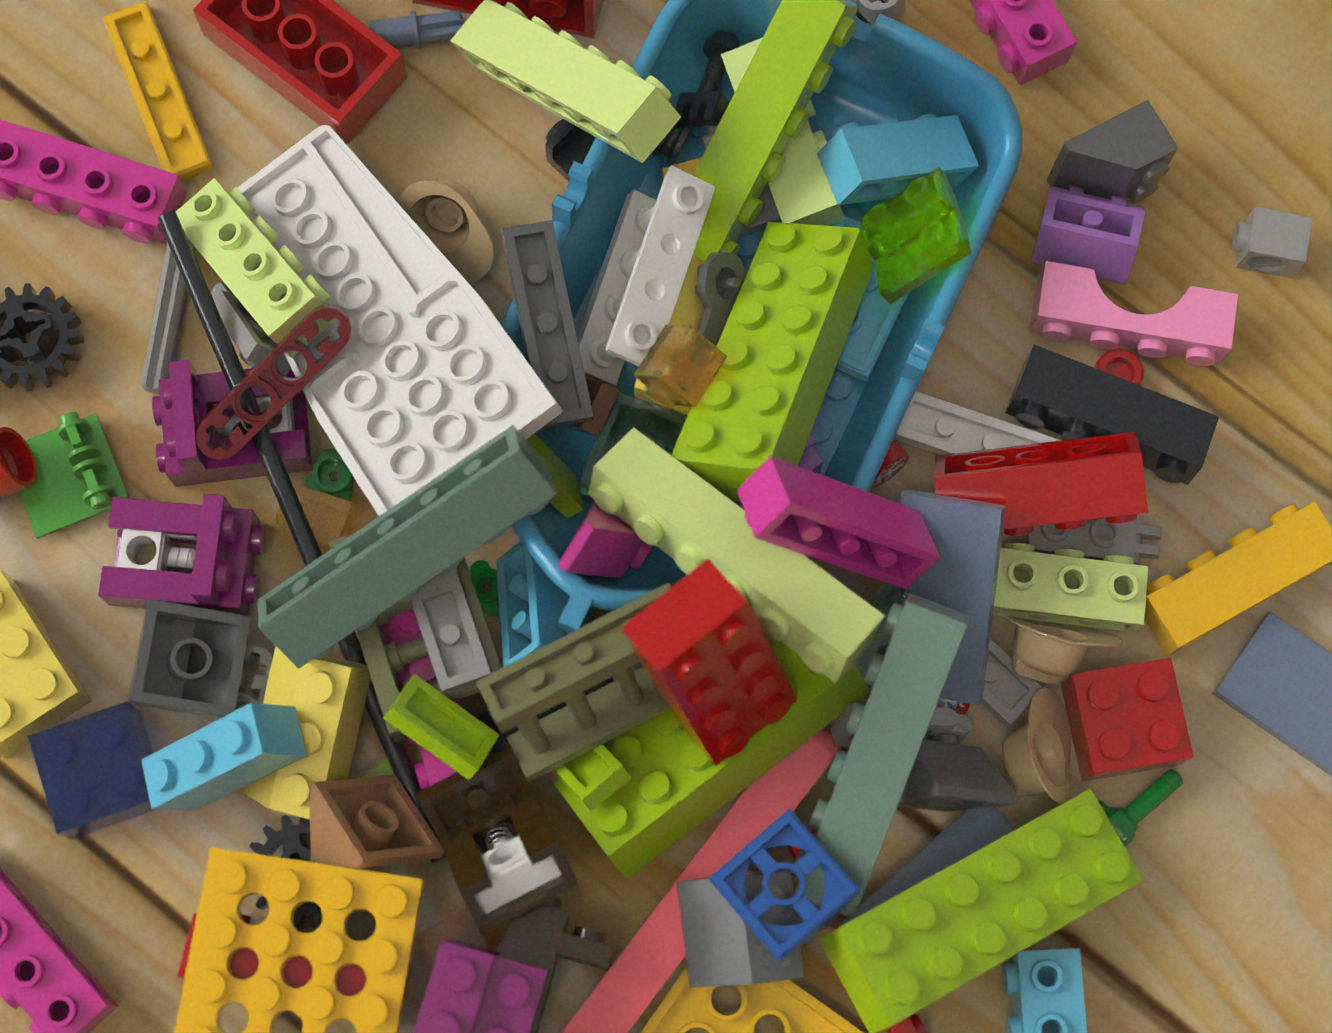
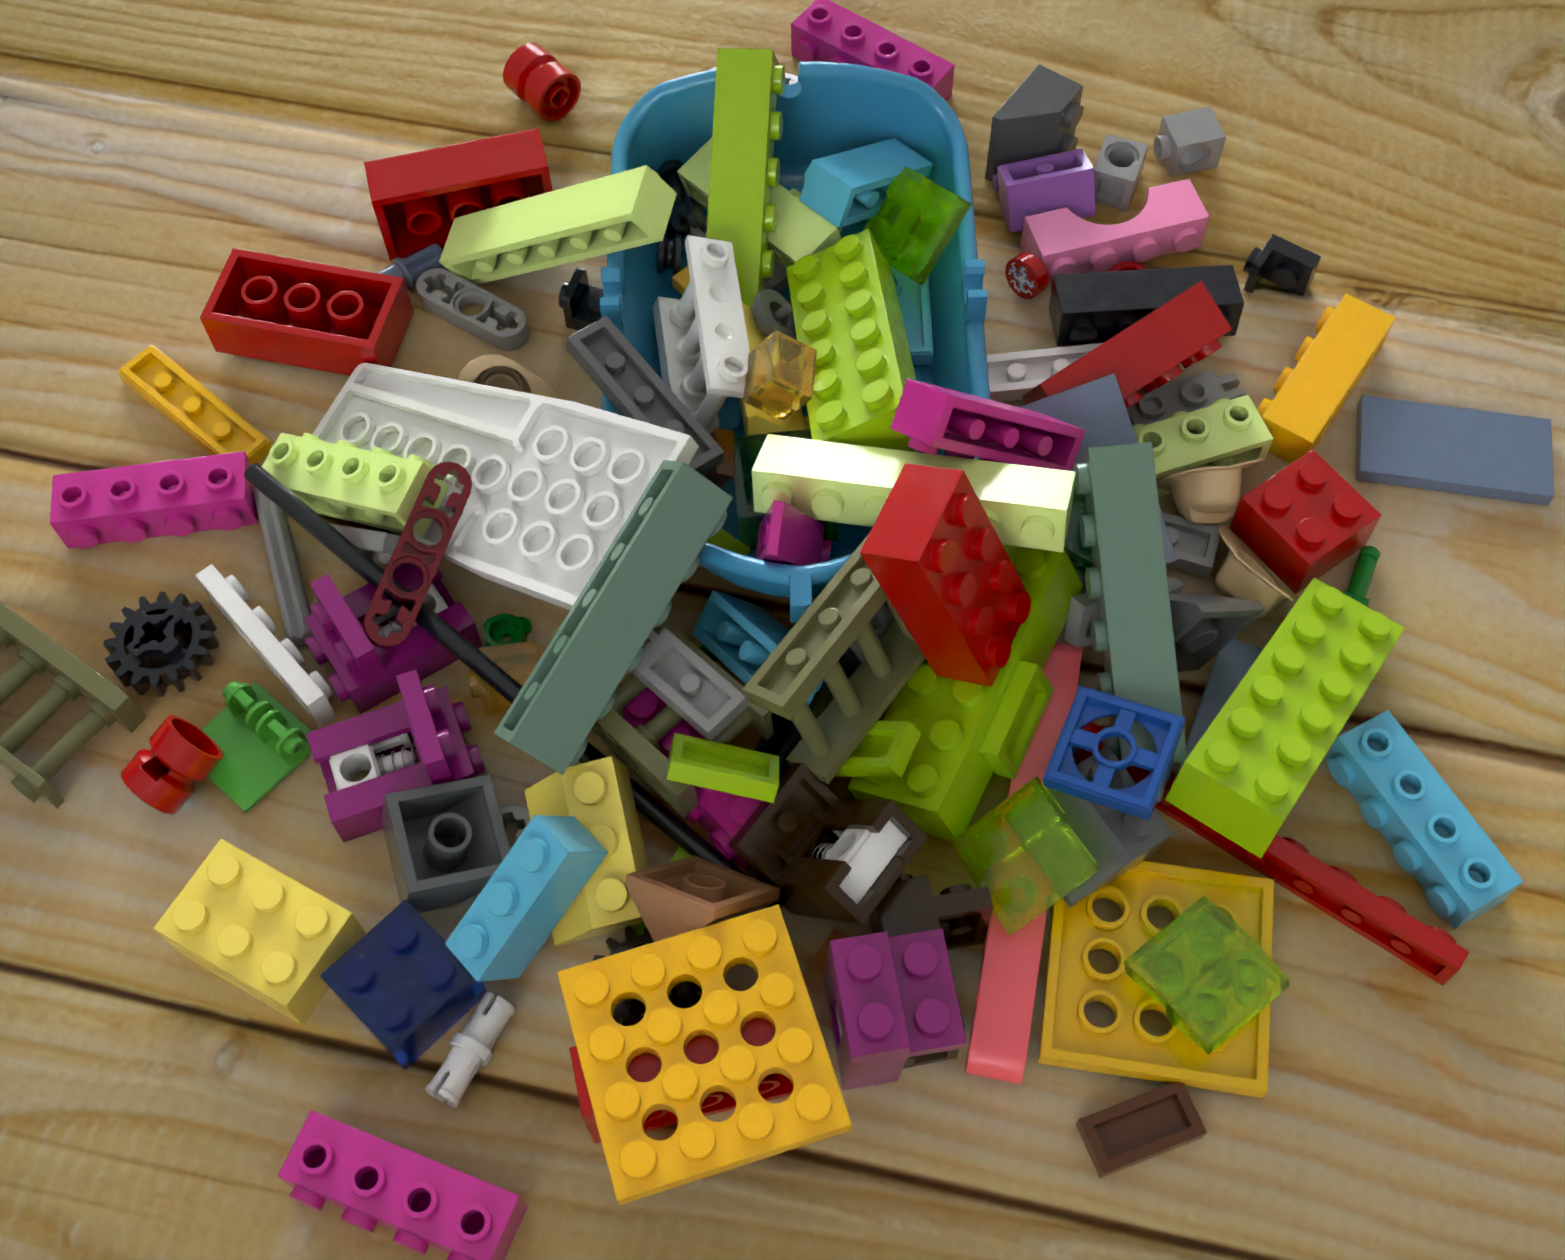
camera: 20 degrees left, 15 degrees down
(124, 401) = (280, 657): none -> white plate
(129, 853) = (470, 1050): none -> white pin
(463, 80) = (479, 325): none -> light grey beam
(665, 930) = (1025, 855): none -> clear neon green slope
(732, 797) = (1016, 719): none -> lime tile
(1018, 321) = (1026, 275): none -> red tile
(1167, 258) = (1118, 171): none -> light grey brick
(1282, 432) = (1282, 264): none -> black bracket

